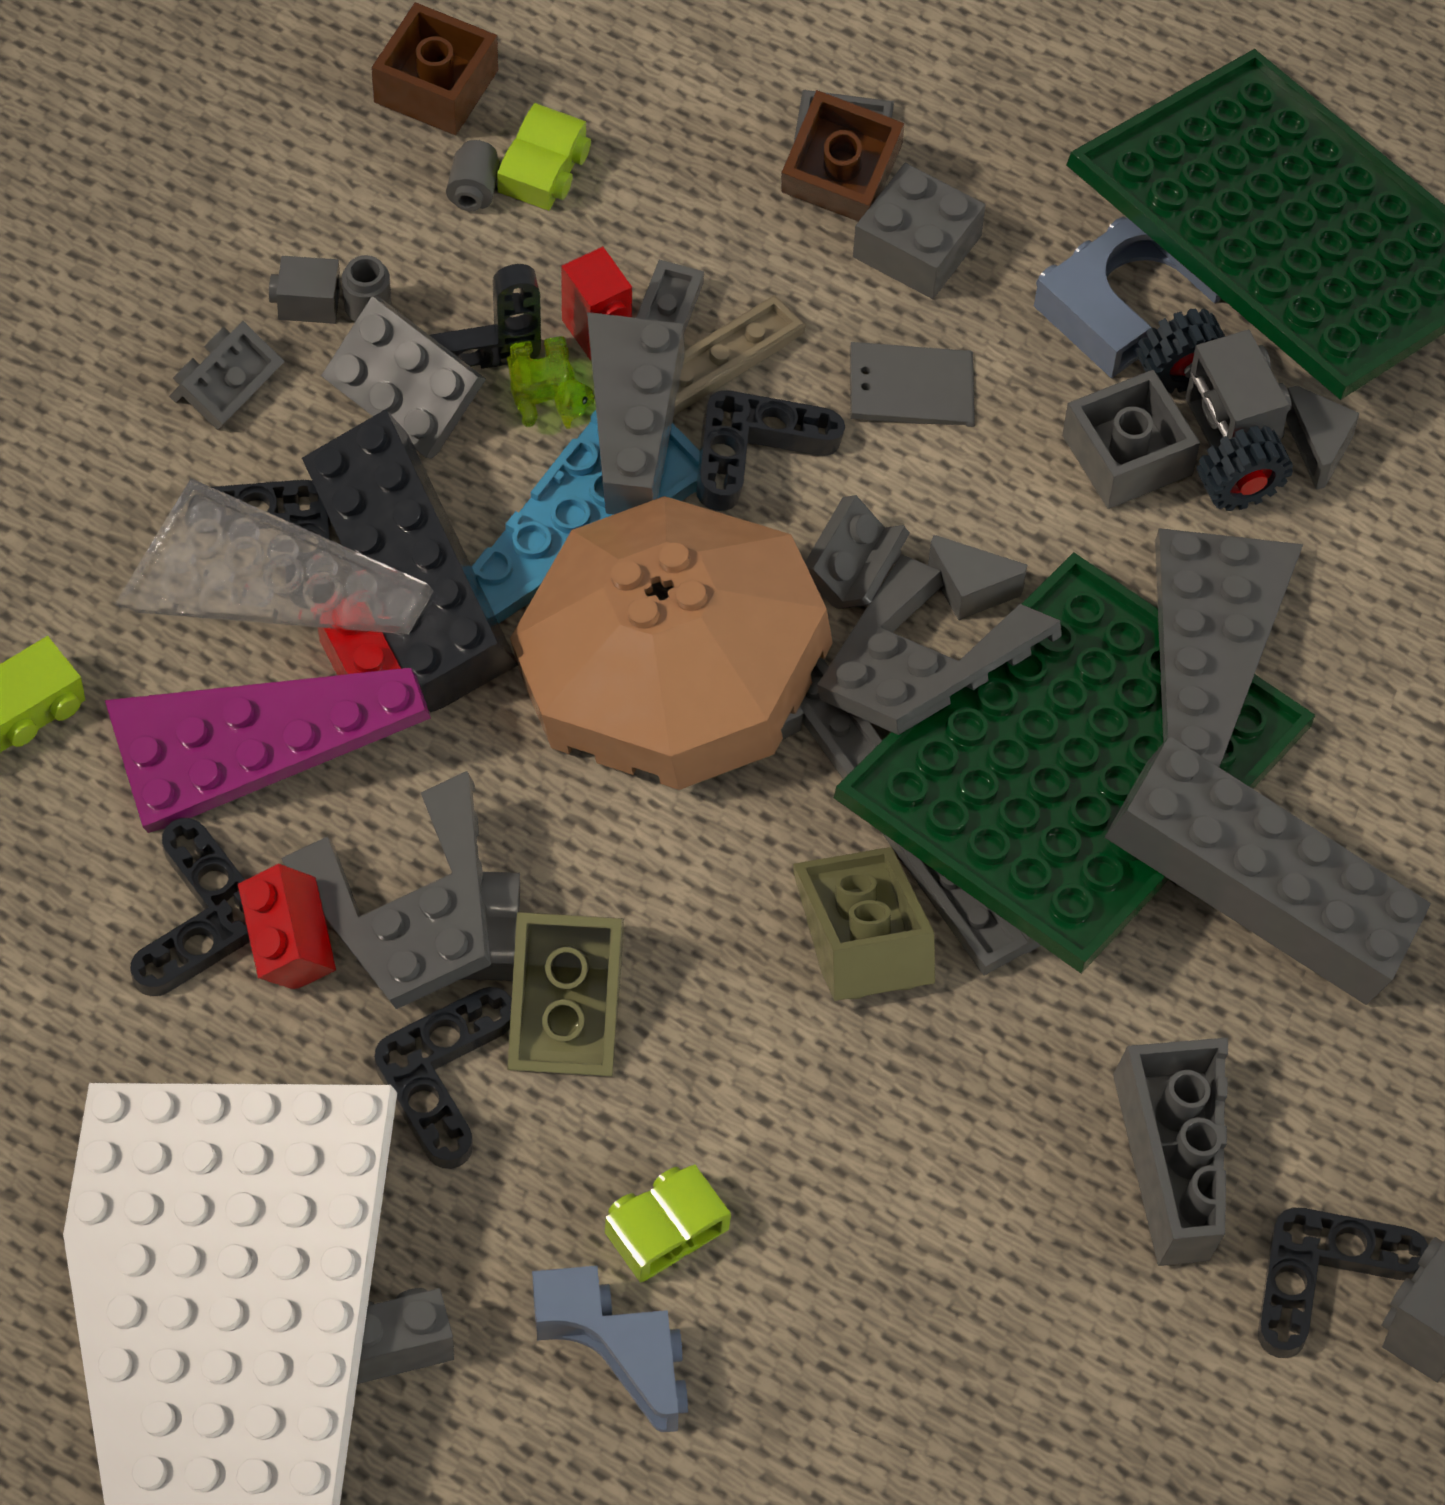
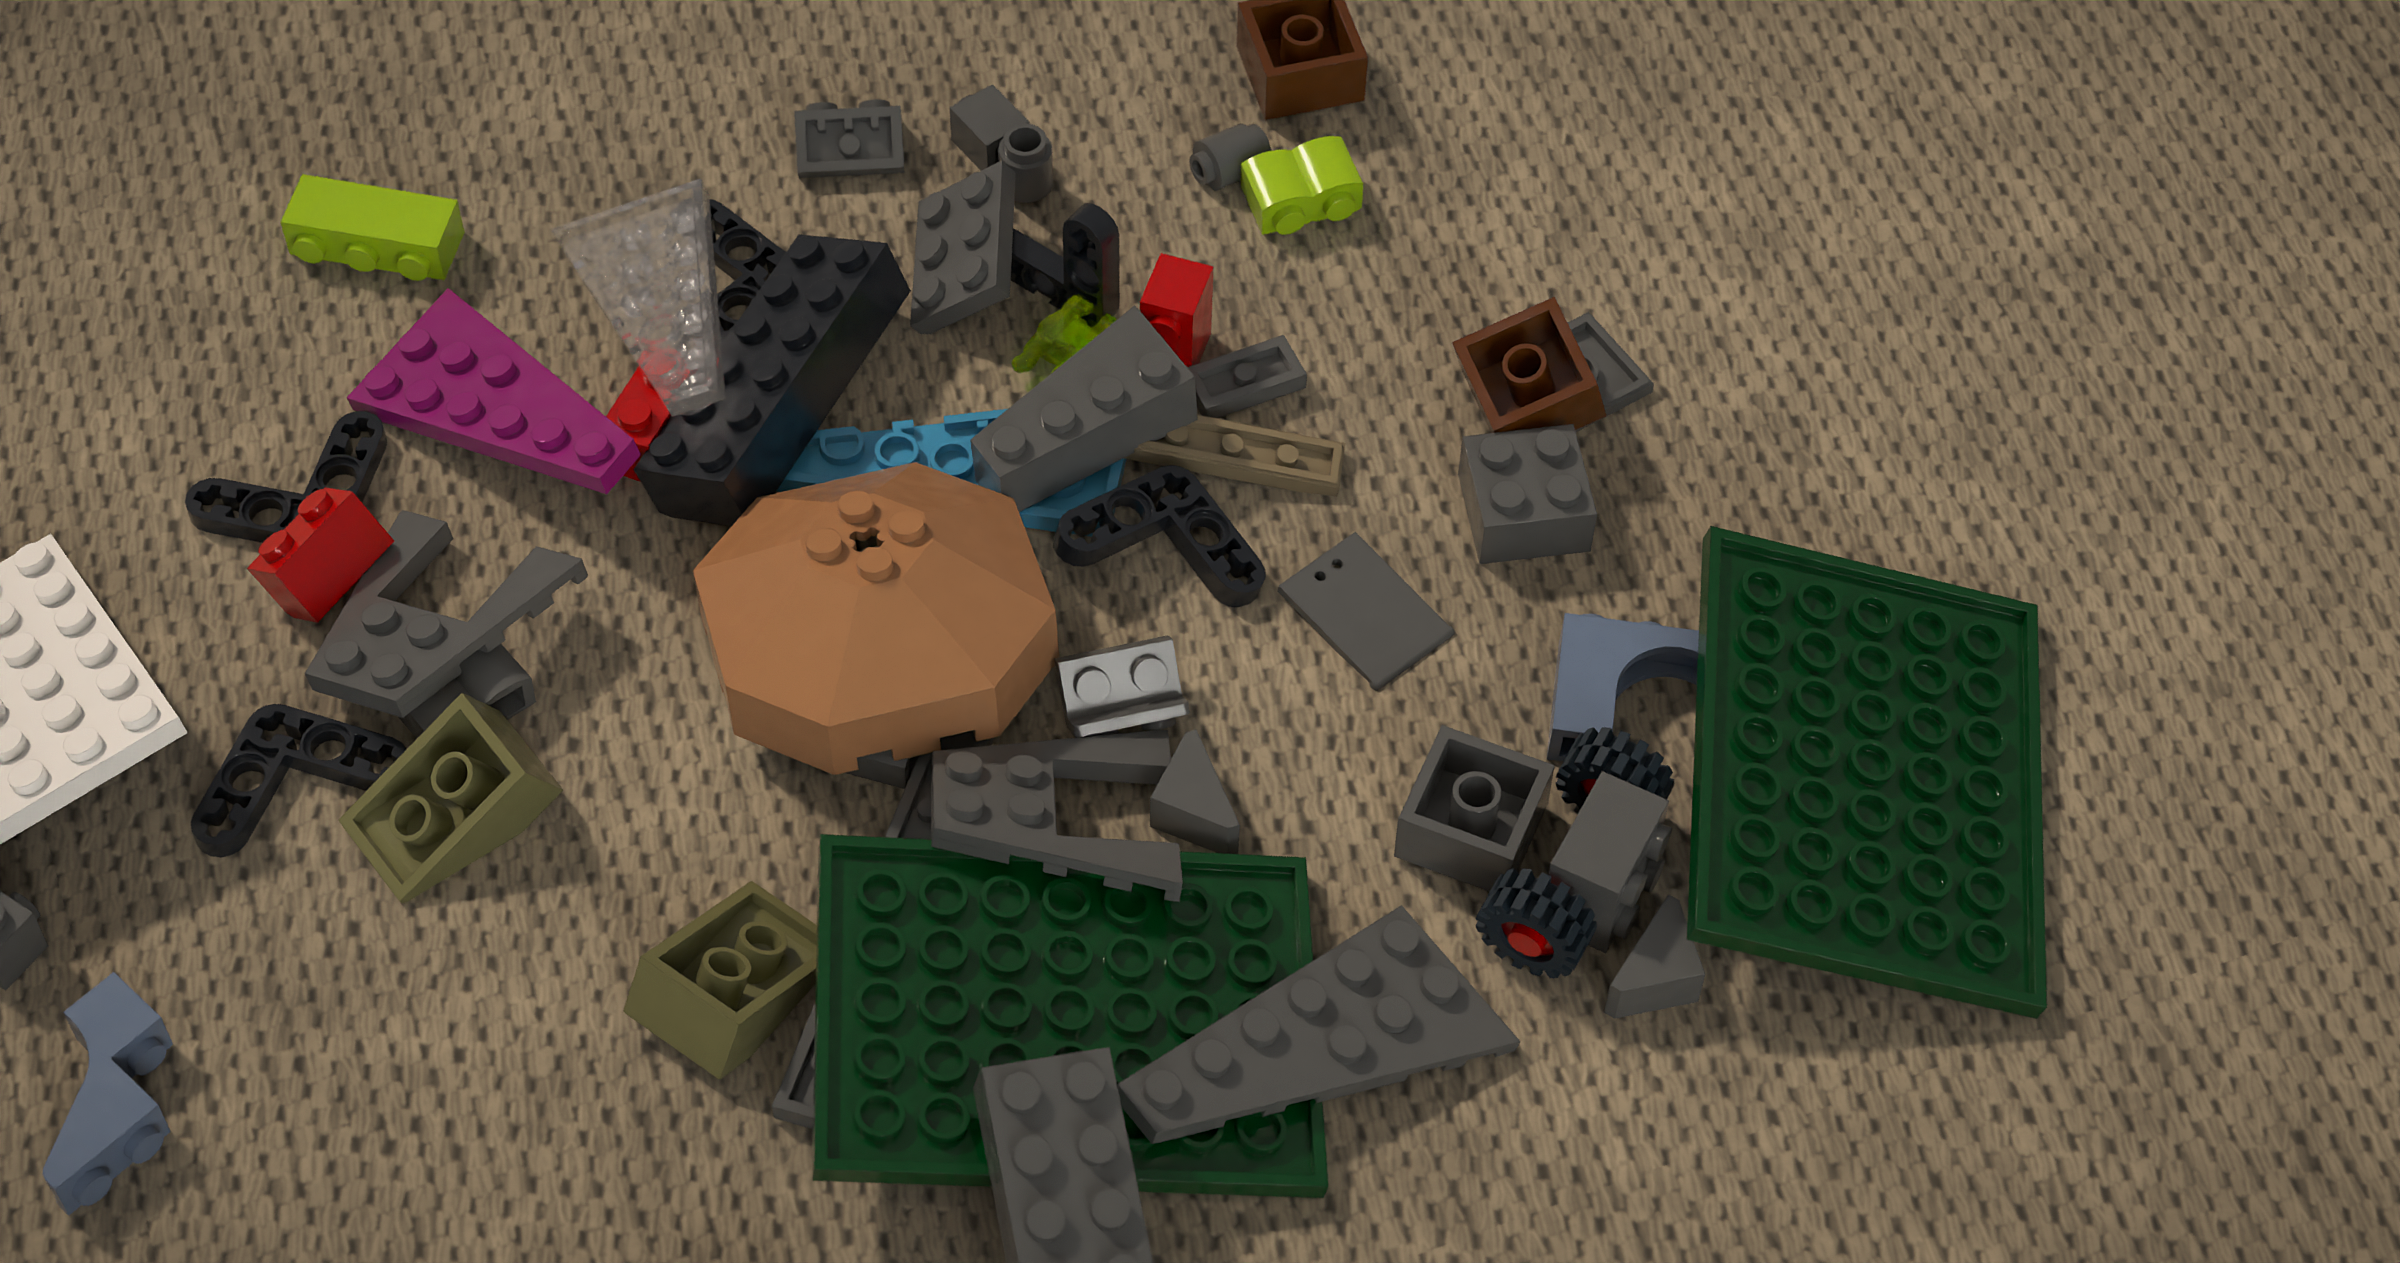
camera: 50 degrees right, 5 degrees down
(666, 1222) = (270, 1046): lime brick -> none

